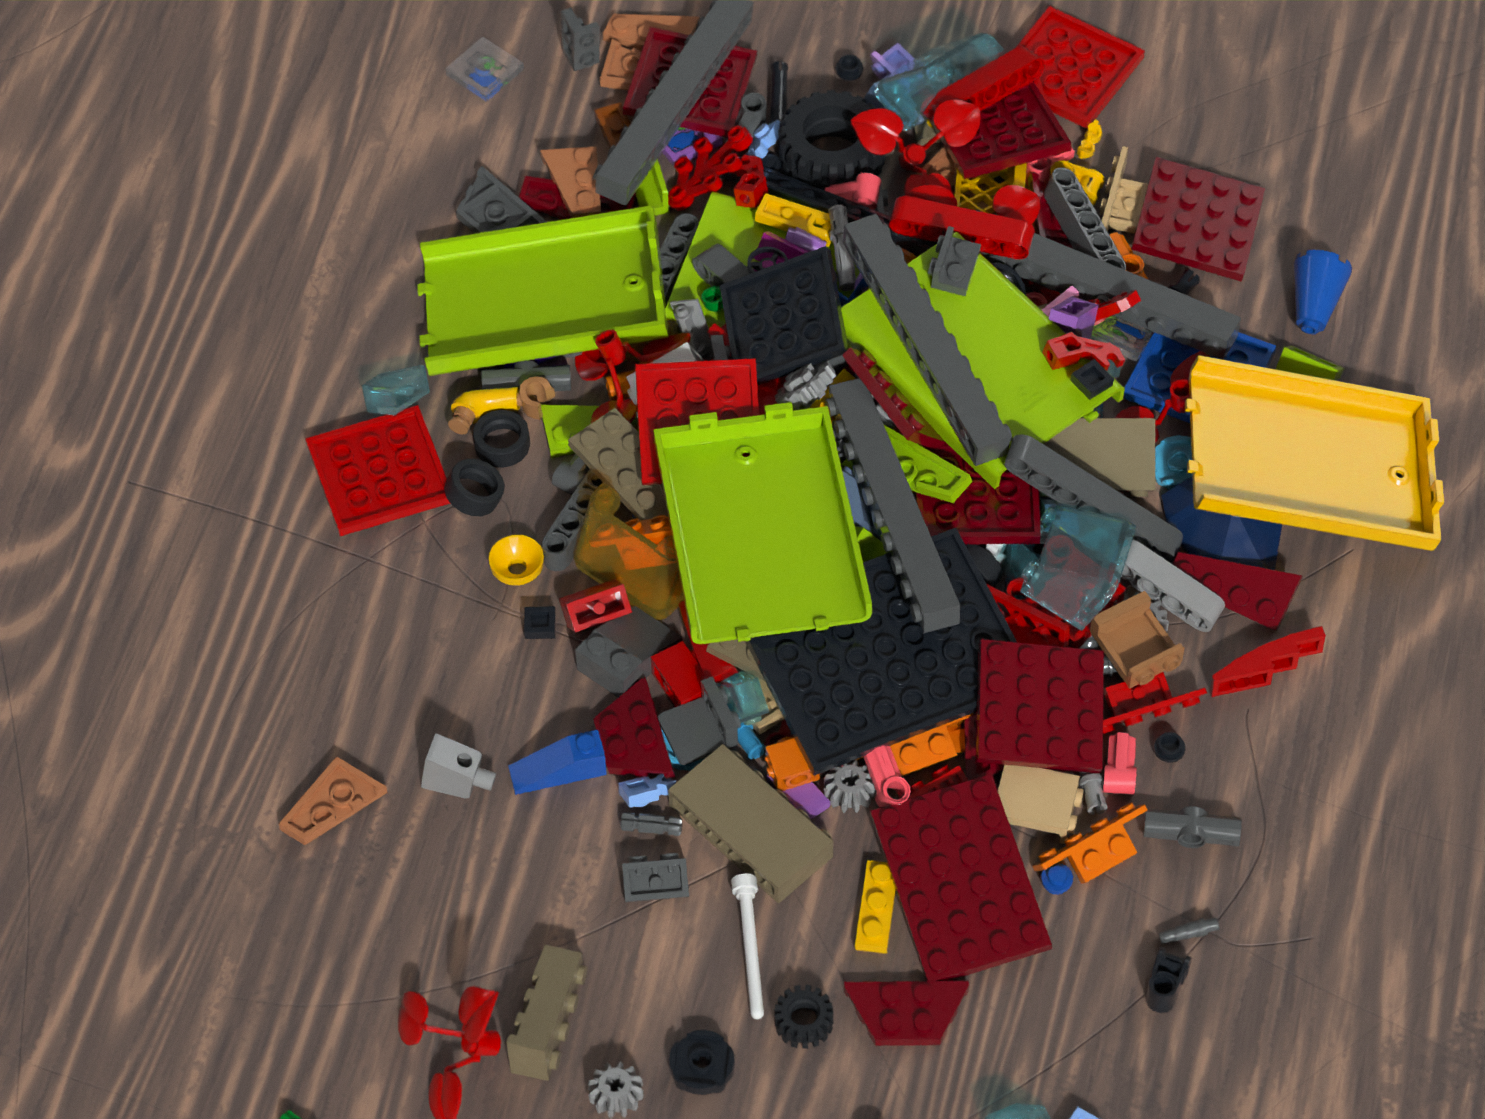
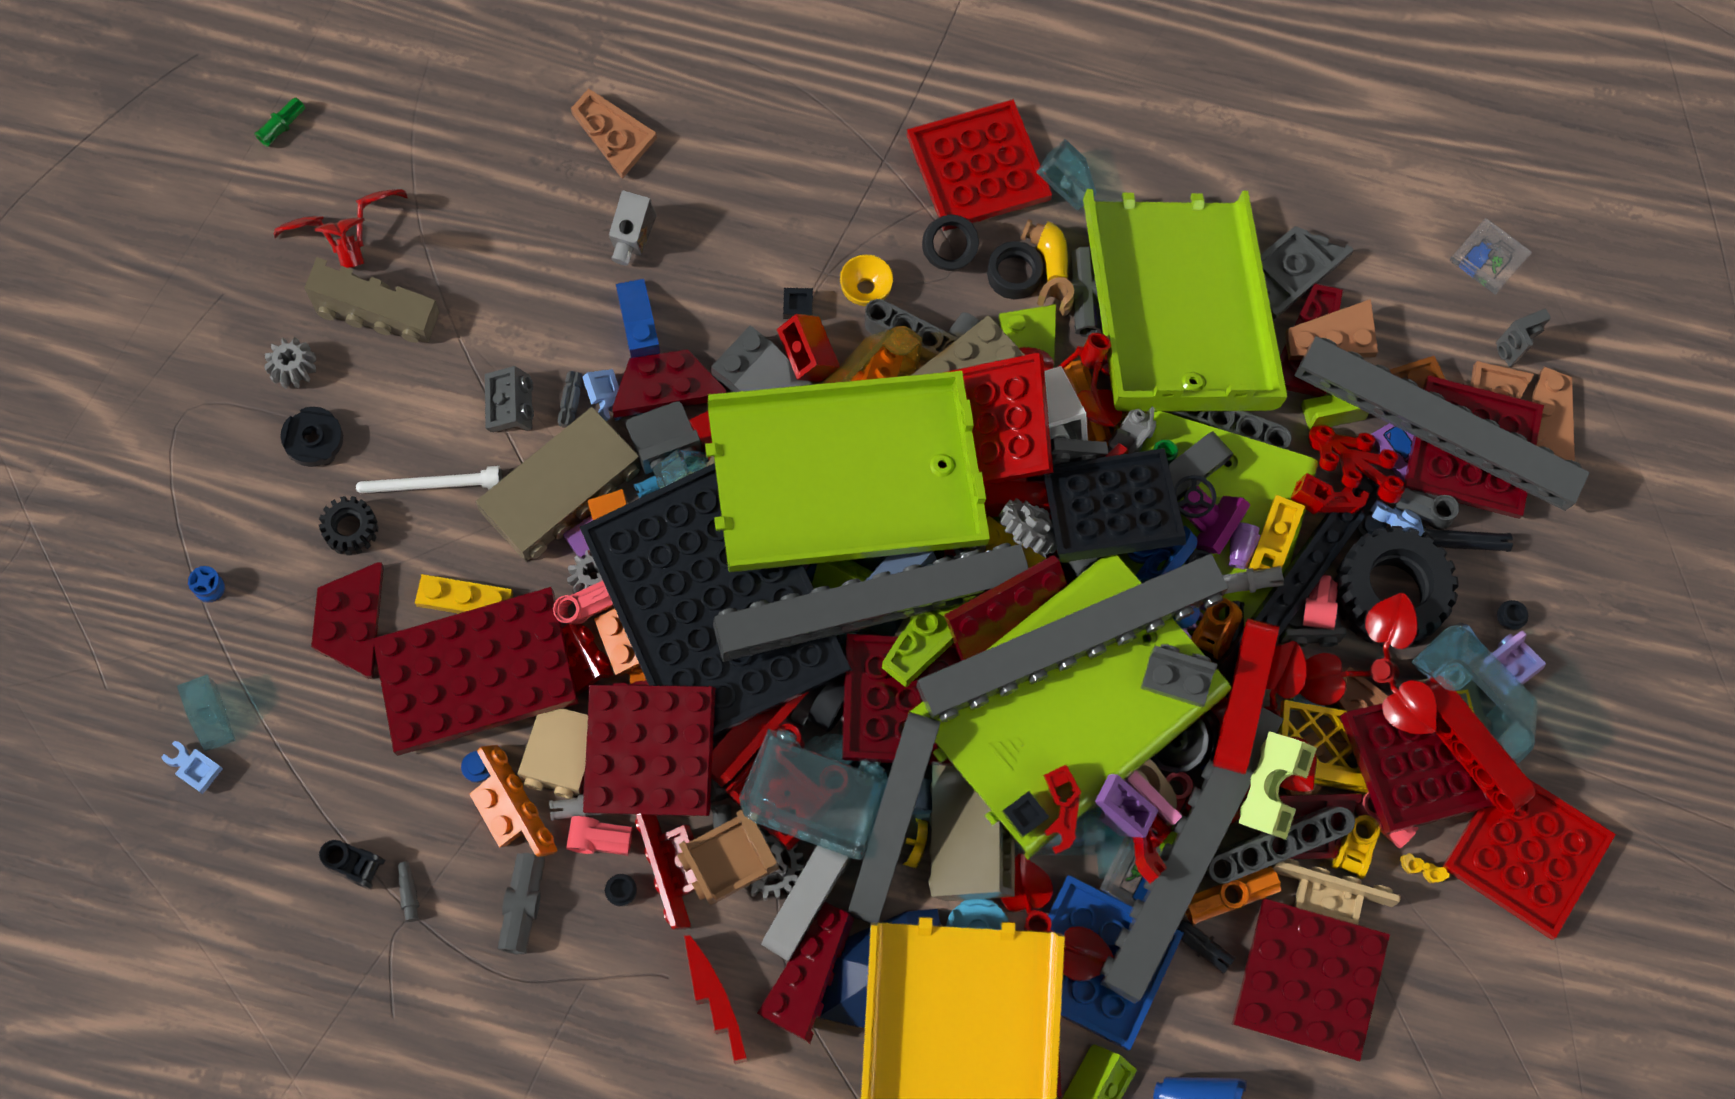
camera: 85 degrees right, 15 degrees up
(1063, 224) = (1278, 760): none -> yellowish green arch

